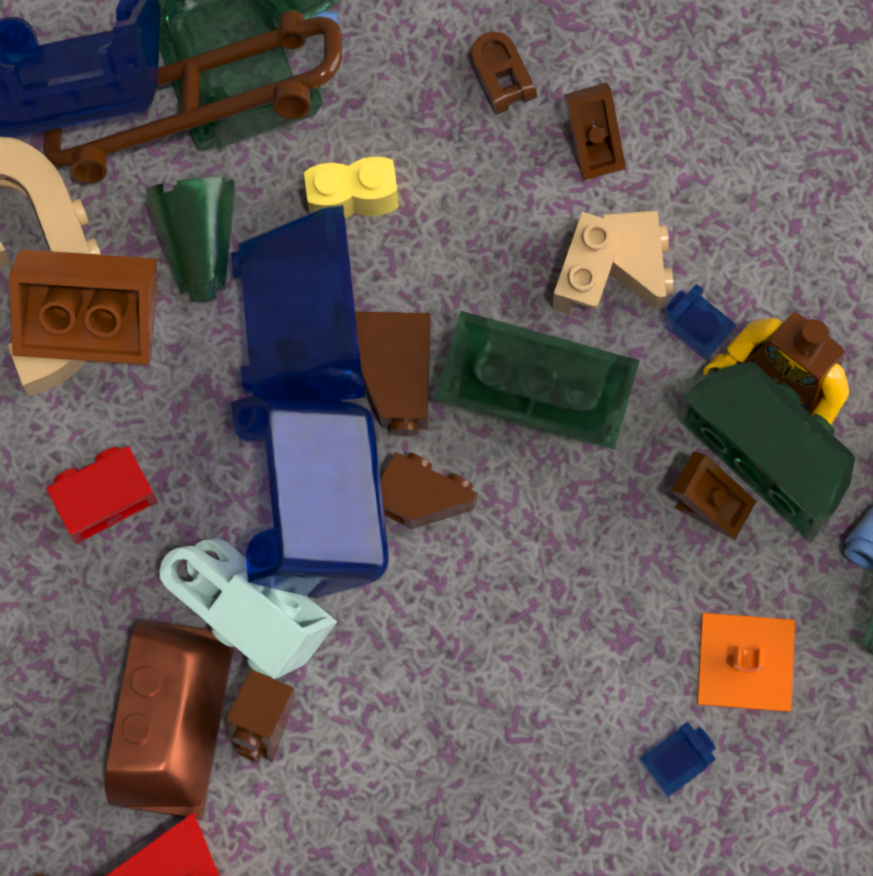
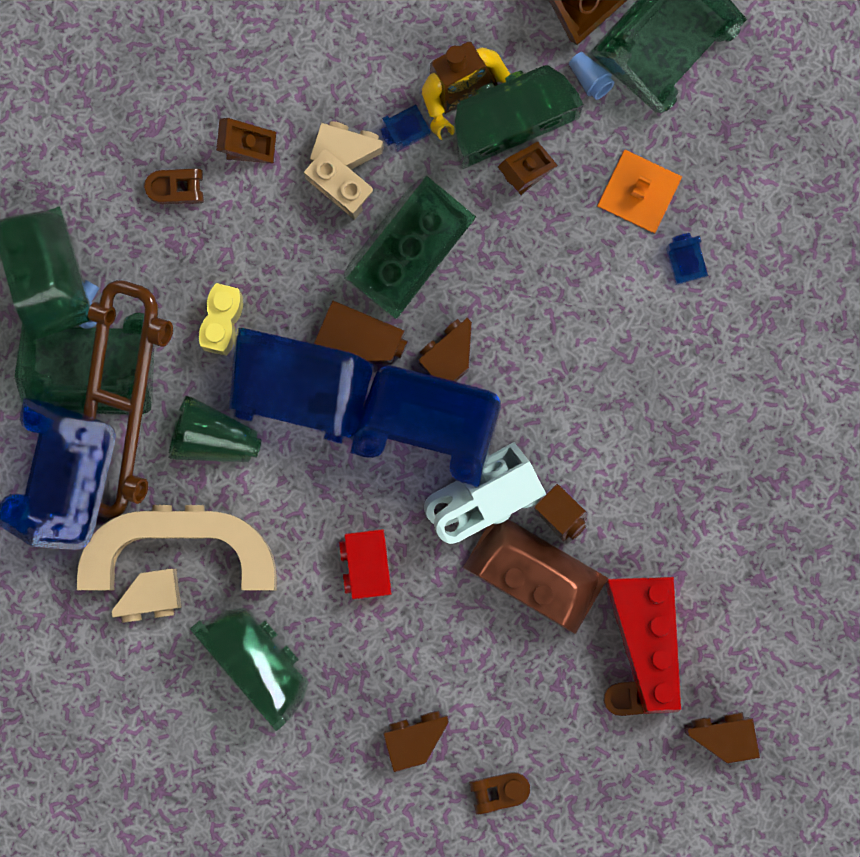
camera: 70 degrees left, 10 degrees up
(83, 306) = (238, 528): dark orange slope -> none

